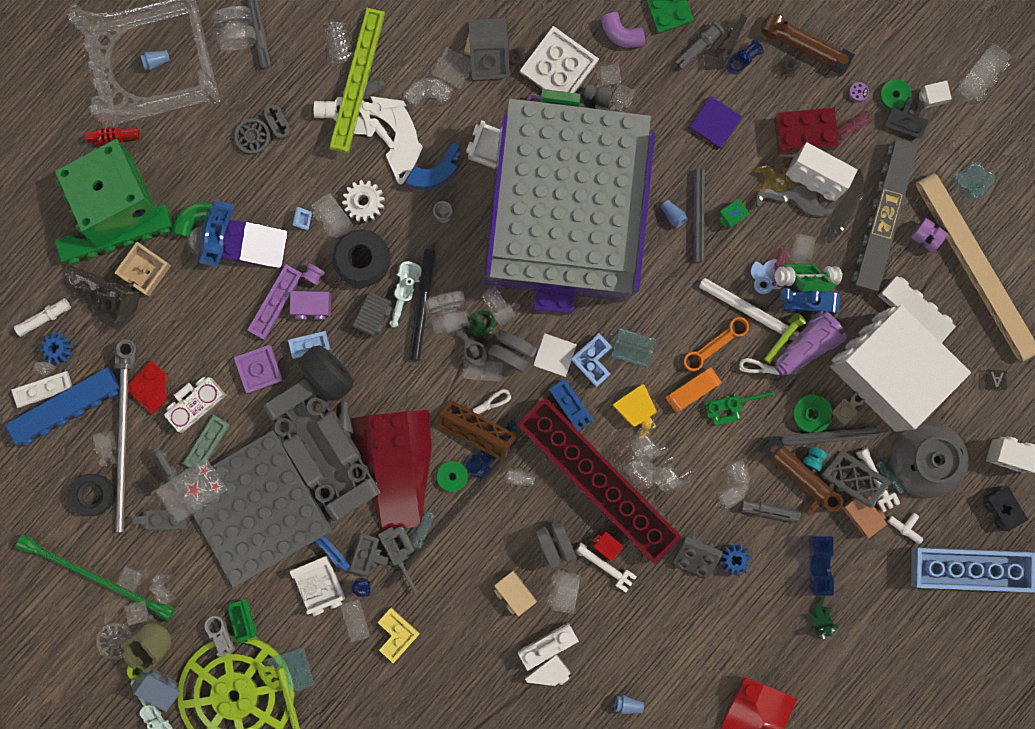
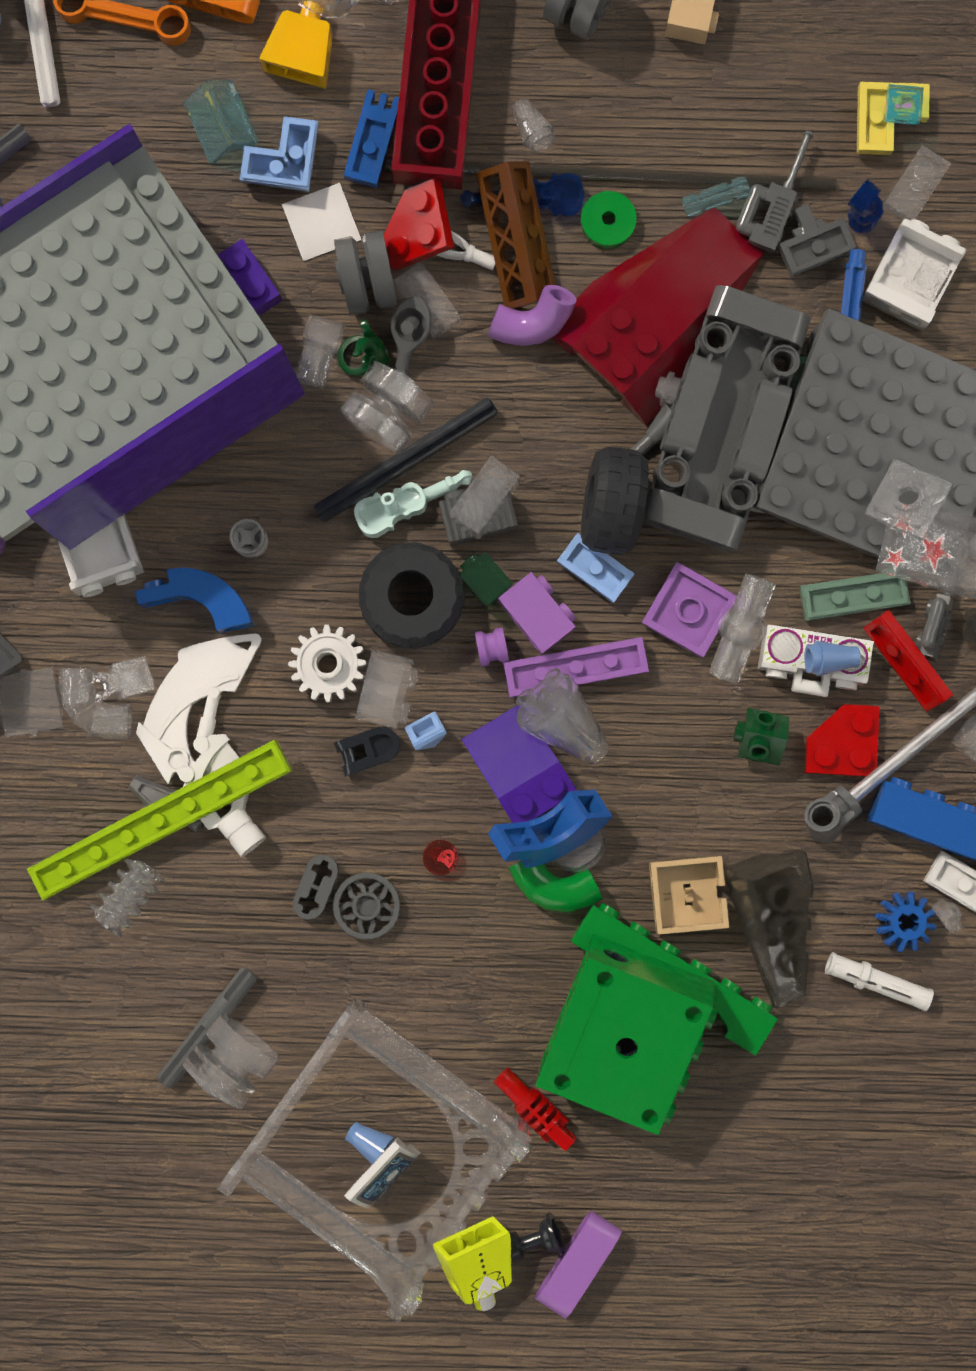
camera: 130 degrees left, 0 degrees up
(37, 101) = (578, 1264): none -> medium lavender beam
(58, 98) = (548, 1235): none -> black piece
(71, 61) = (477, 1262): none -> neon yellow torso
(138, 52) = (382, 1174): none -> slope
(159, 441) = (908, 661): none -> red tile
(180, 353) = (762, 736): none -> dark green brick
(185, 406) = (829, 657): none -> medium blue cone
(213, 504) = (913, 518): none -> clear piece
(231, 383) = (742, 628): none -> clear piece
(246, 182) = (440, 857): none -> clear red tile
(257, 276) = (561, 718): none -> clear cone
(312, 194) = (380, 746): none -> black plate
(343, 294) = (484, 579): none -> clear green brick
(355, 436) = (667, 389): none -> clear plate
(372, 319) = (484, 497): none -> clear brick
(392, 643) = (903, 104): none -> clear light blue tile
(426, 113) = (125, 678): none -> clear plate
(431, 405) = (534, 325): none -> medium lavender cylinder
(514, 391) = (418, 226): none -> red plate

